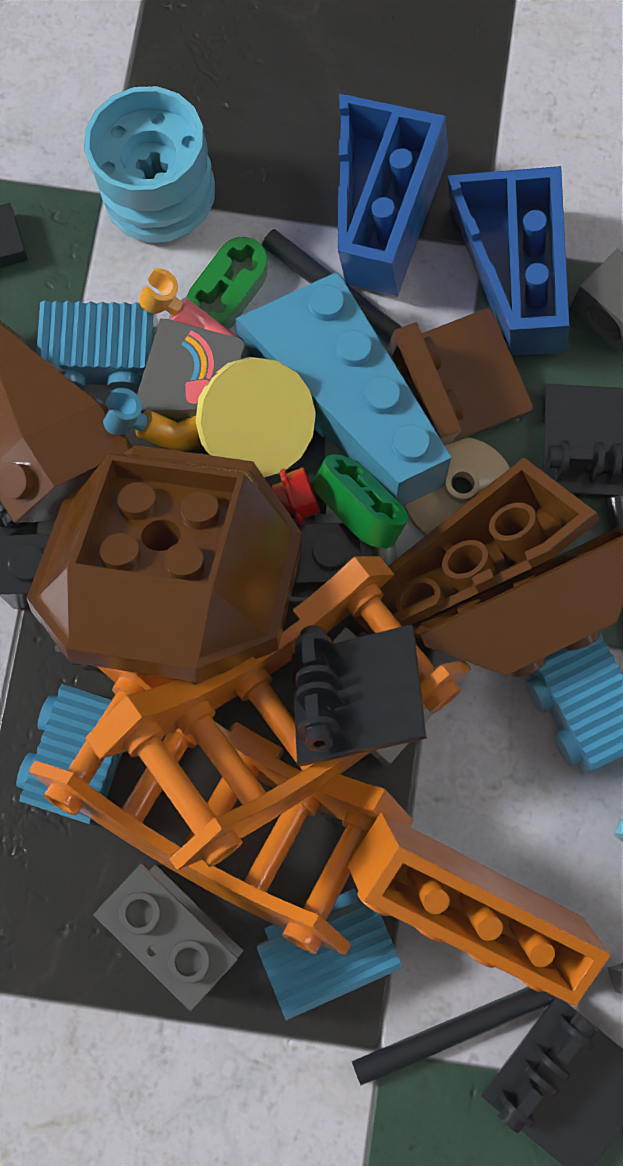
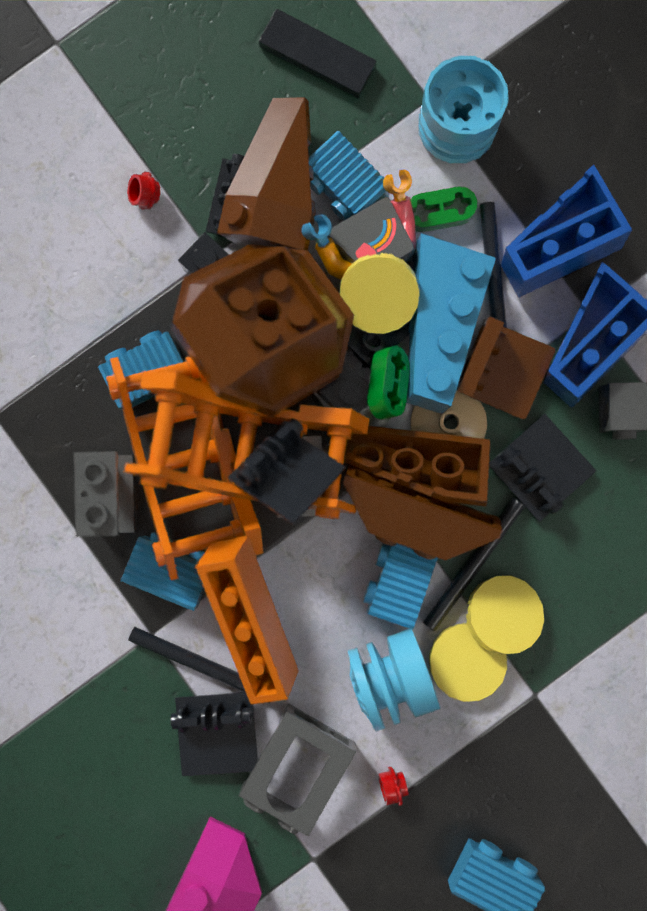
camera: 50 degrees right, 10 degrees up
(296, 494) = (360, 350): red plate -> none

